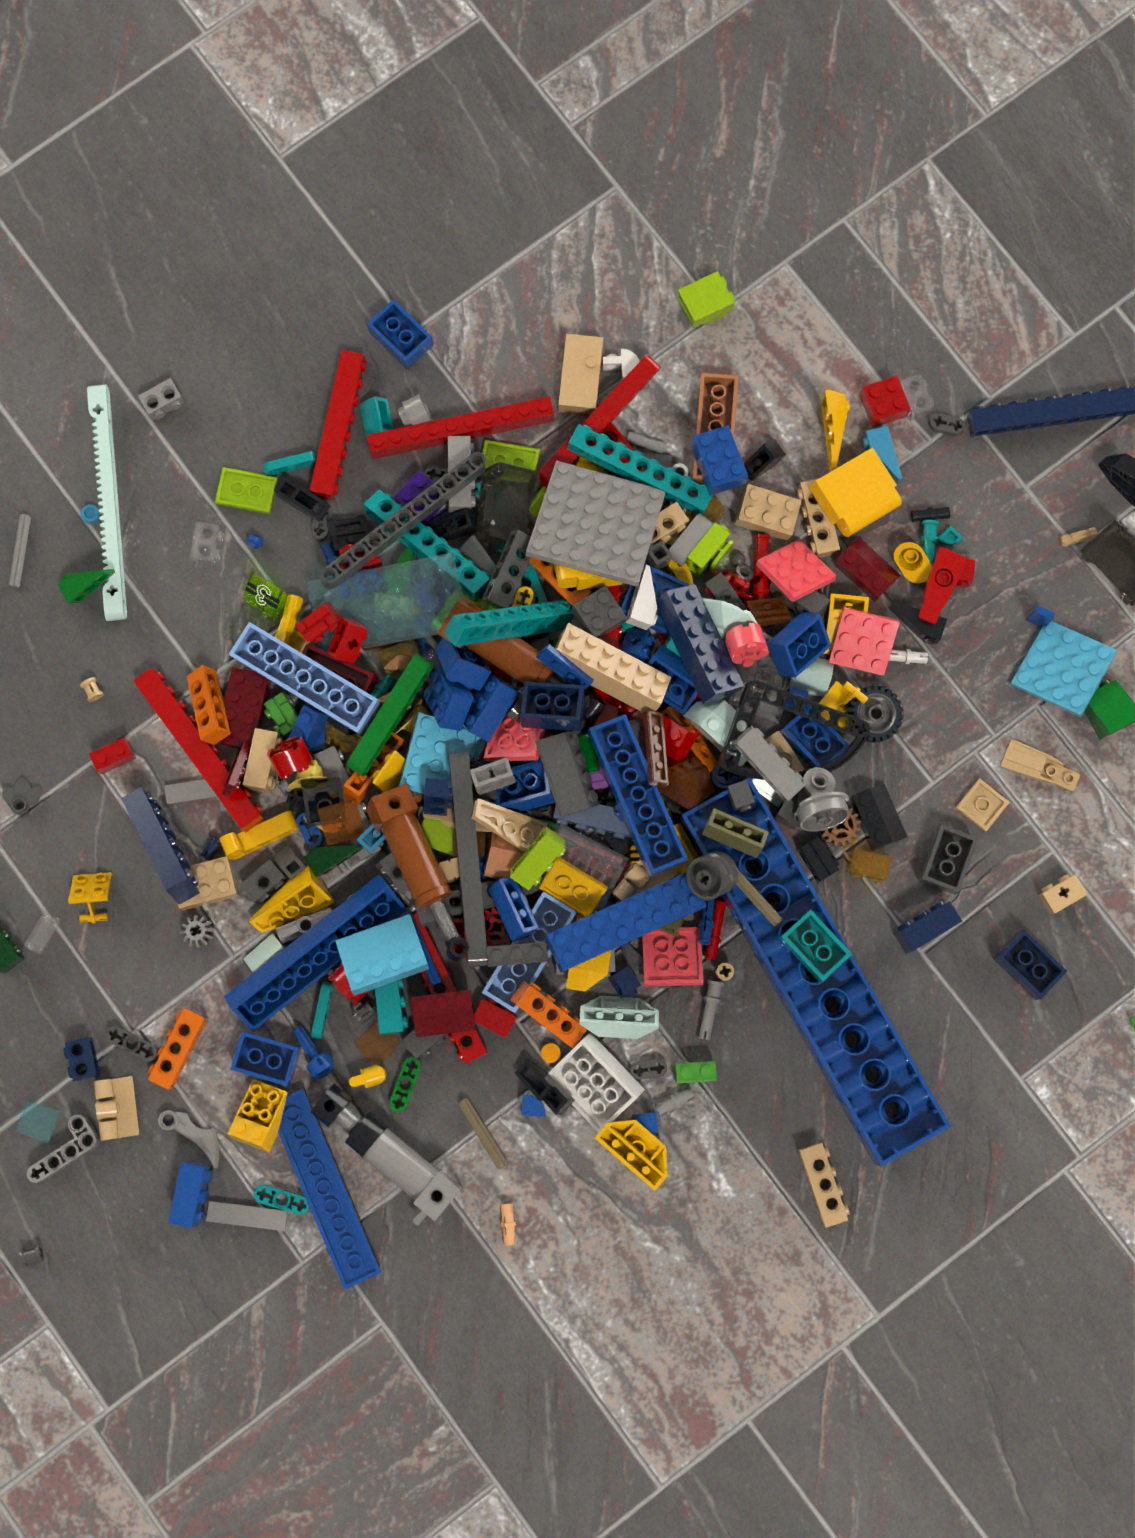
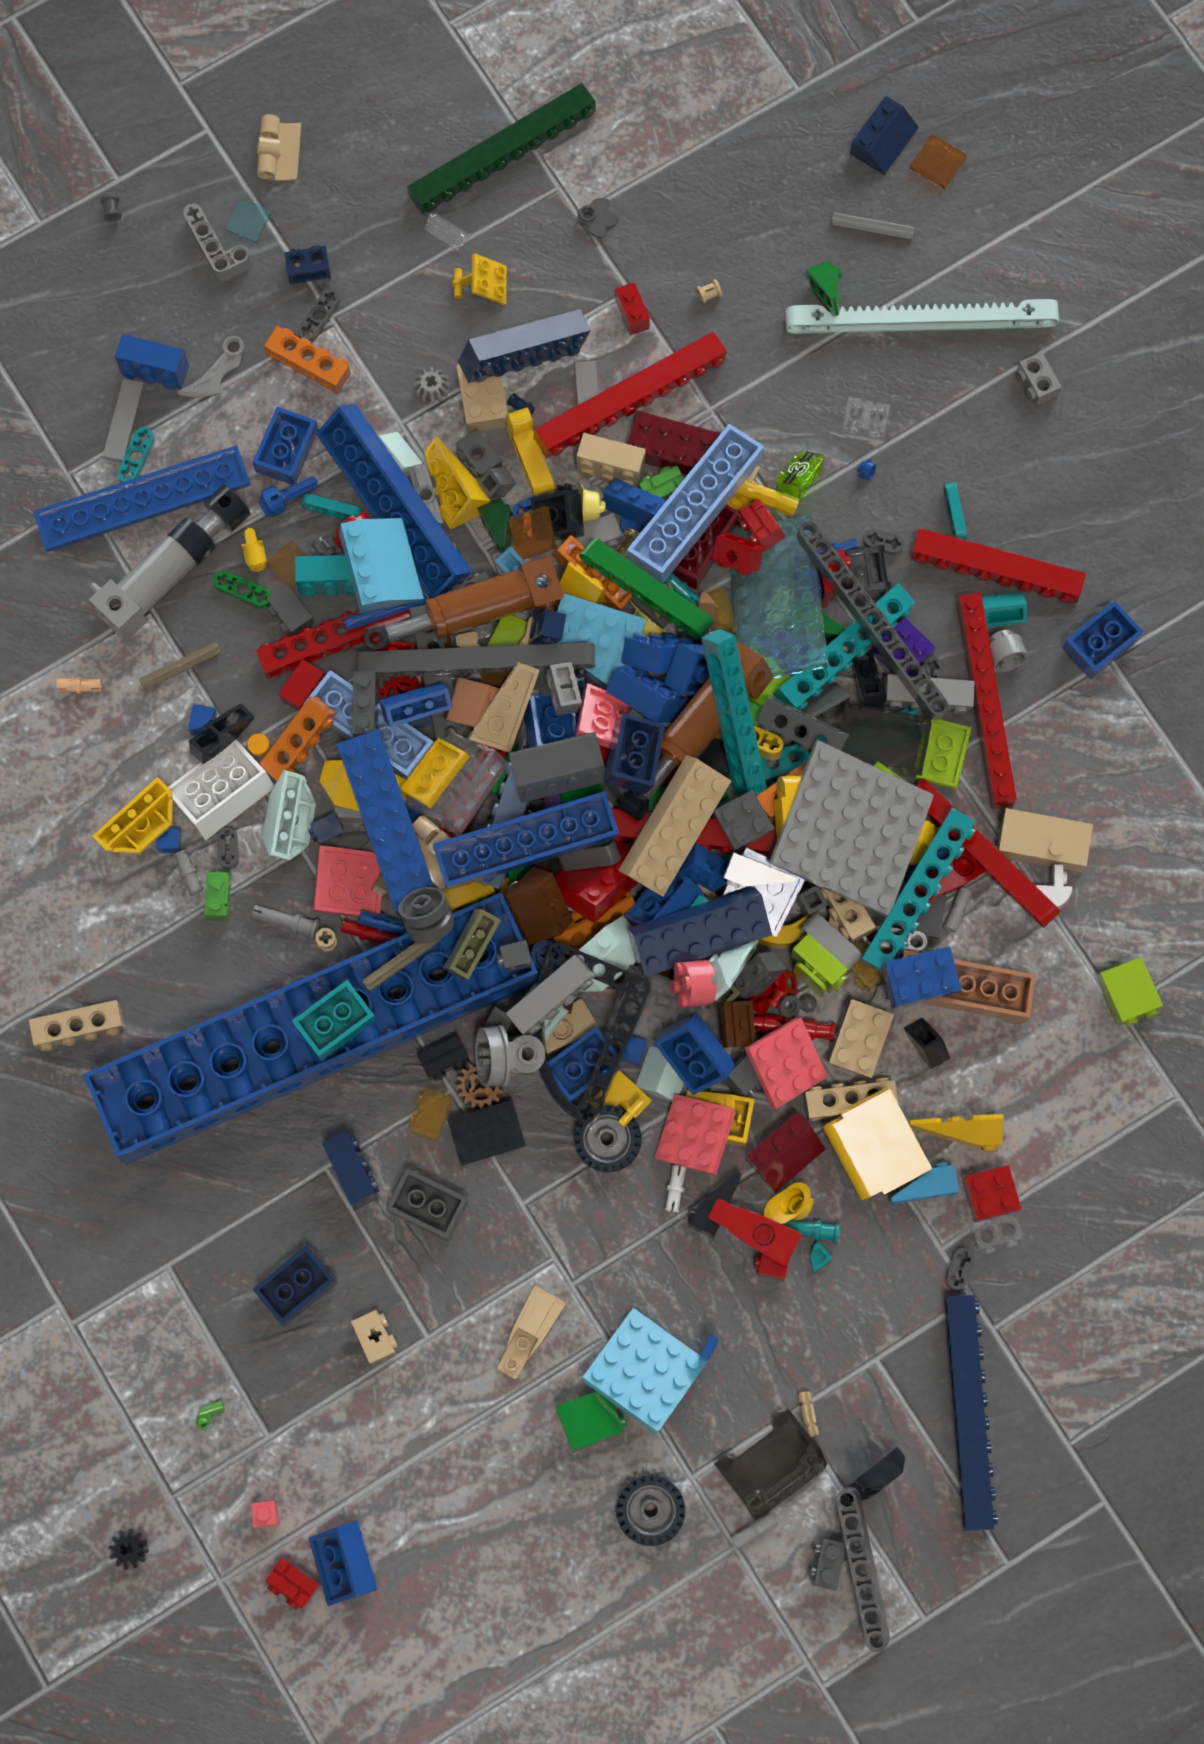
camera: 95 degrees right, 5 degrees down
(90, 514) = (910, 297): dark azure tile -> none
(116, 1108) = (252, 296): tan panel -> none
(208, 705) = (678, 405): orange brick -> none
(237, 769) = (599, 428): dark red plate -> none
(246, 490) = (927, 464): lime tile -> none
(259, 1116) = (224, 434): yellow slope -> none
(290, 757) = (607, 481): red brick -> none
(301, 499) = (911, 520): black slope -> none
(443, 1013) = (311, 627): dark red slope -> none
(538, 858) = (466, 731): lime brick -> none
(563, 667) = (677, 770): blue tile -> none
(655, 748) = (577, 865): reddish brown tile -> none
(930, 514) = (847, 1234): black pin -> none
(982, 805) = (490, 1257): tan tile -> none

